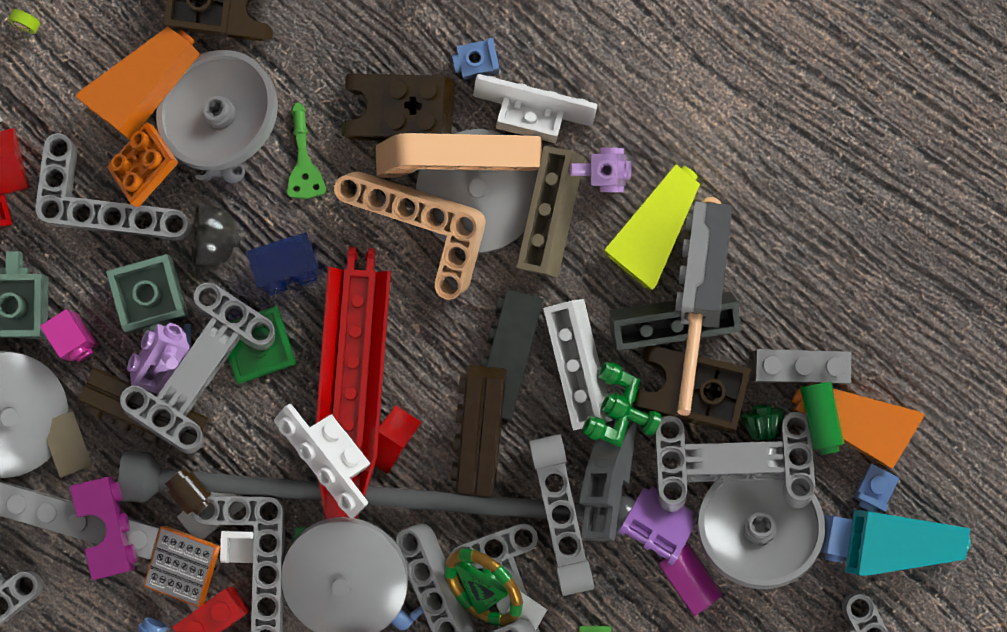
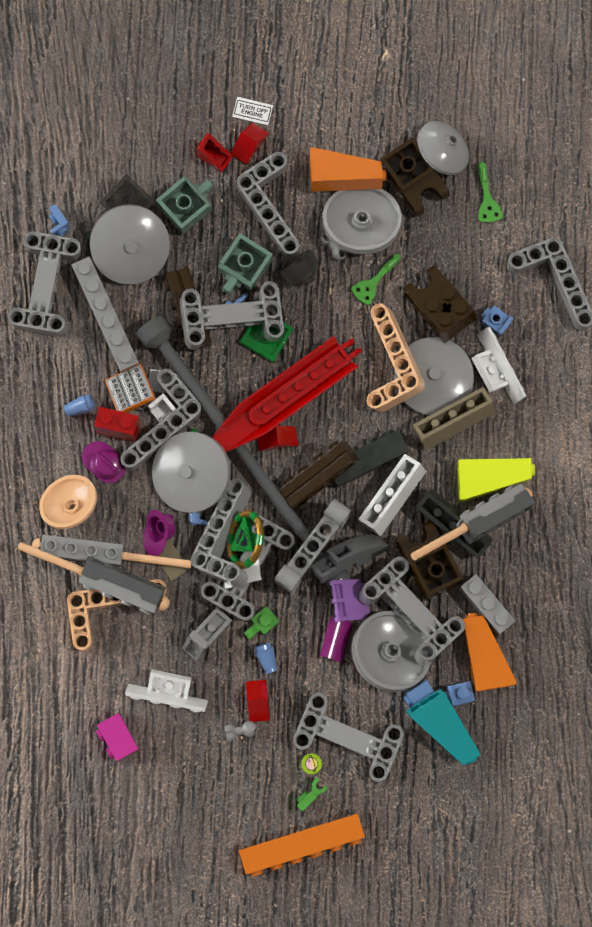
camera: 45 degrees right, 5 degrees down
(24, 21) = (324, 94): lime tile -> none
(67, 445) = (140, 287): dark tan sticker -> none
(69, 336) = (193, 243): dark pink brick -> none
(114, 553) = (109, 350): magenta arch -> none
(142, 164) = (305, 206): orange tile -> none
(158, 358) = (226, 291): lavender brick -> none
(188, 492) = (168, 361): dark brown brick -> none
(284, 264) = (317, 313): clear blue brick -> none
(328, 454) = (244, 411): white bracket -> none
(416, 151) = (422, 324): light nougat beam -> none
(606, 169) = (498, 426): lavender brick -> none
(619, 408) = (388, 532): green piece -> none
(763, 421) = (443, 609): dark green piece -> none
(822, 417) = (471, 633): green brick -> none

